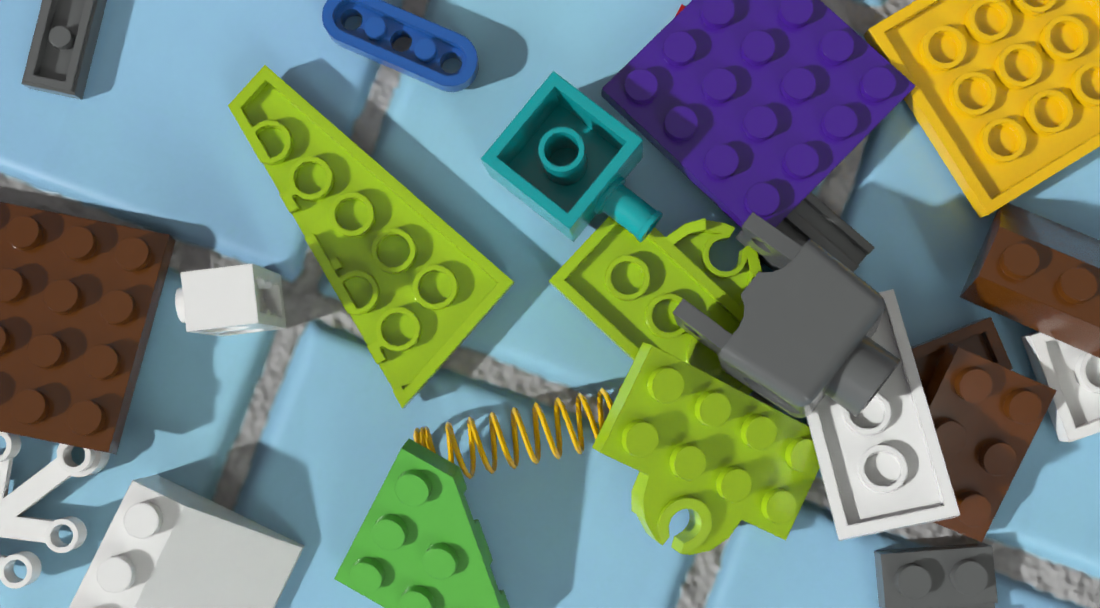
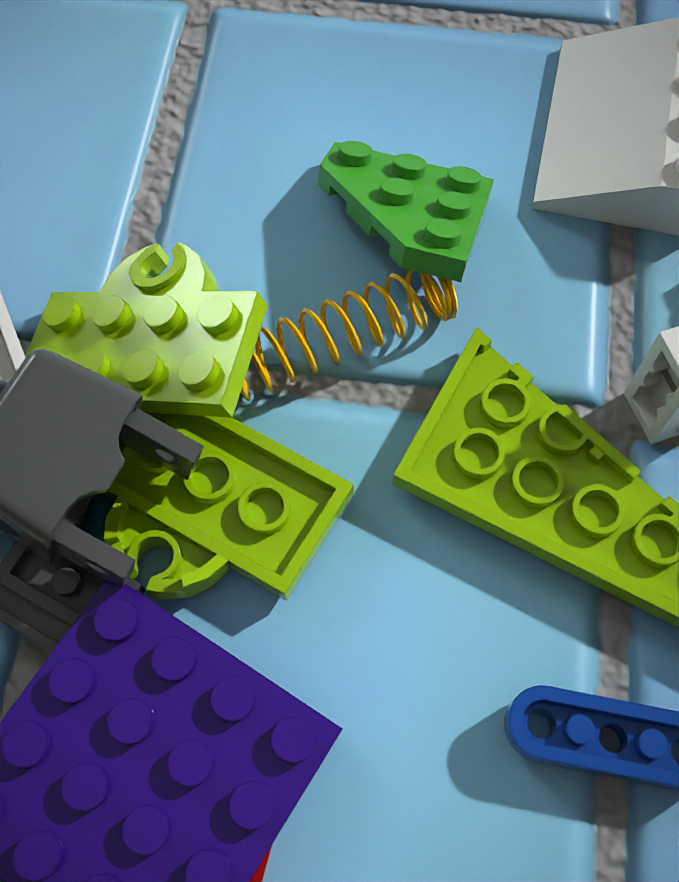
camera: 170 degrees right, 20 degrees down
(571, 162) = (361, 614): teal brick -> none

